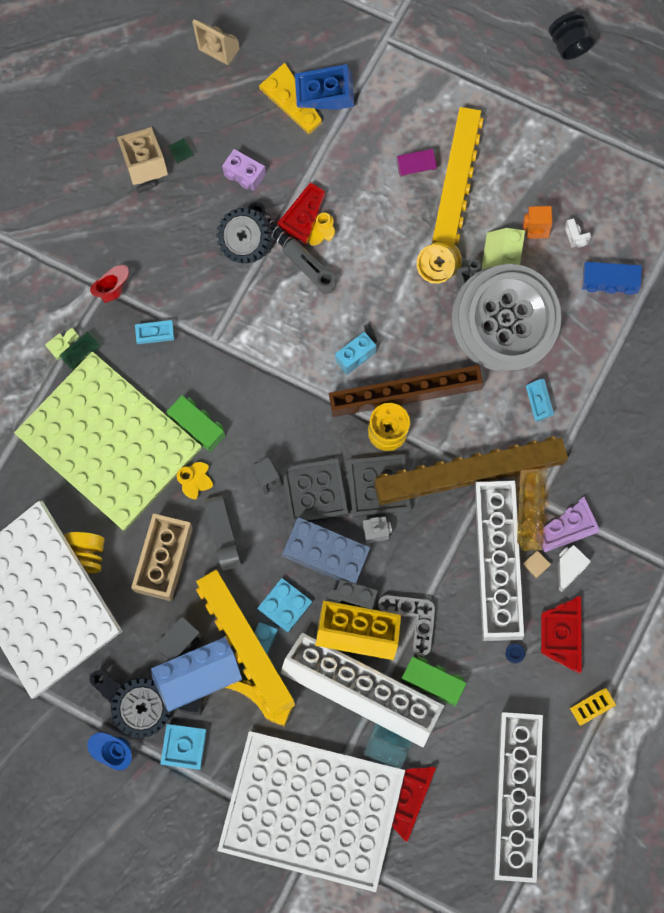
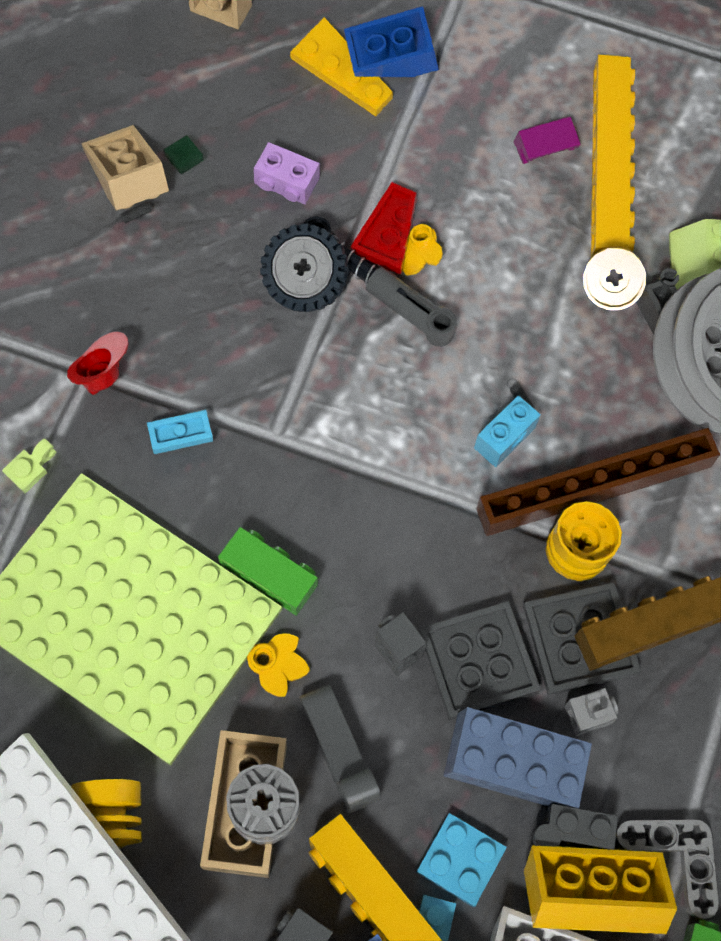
camera: 20 degrees left, 5 degrees down
(79, 350) = (60, 474): clear green plate -> none
(179, 562) = (282, 813): none -> light grey wheel

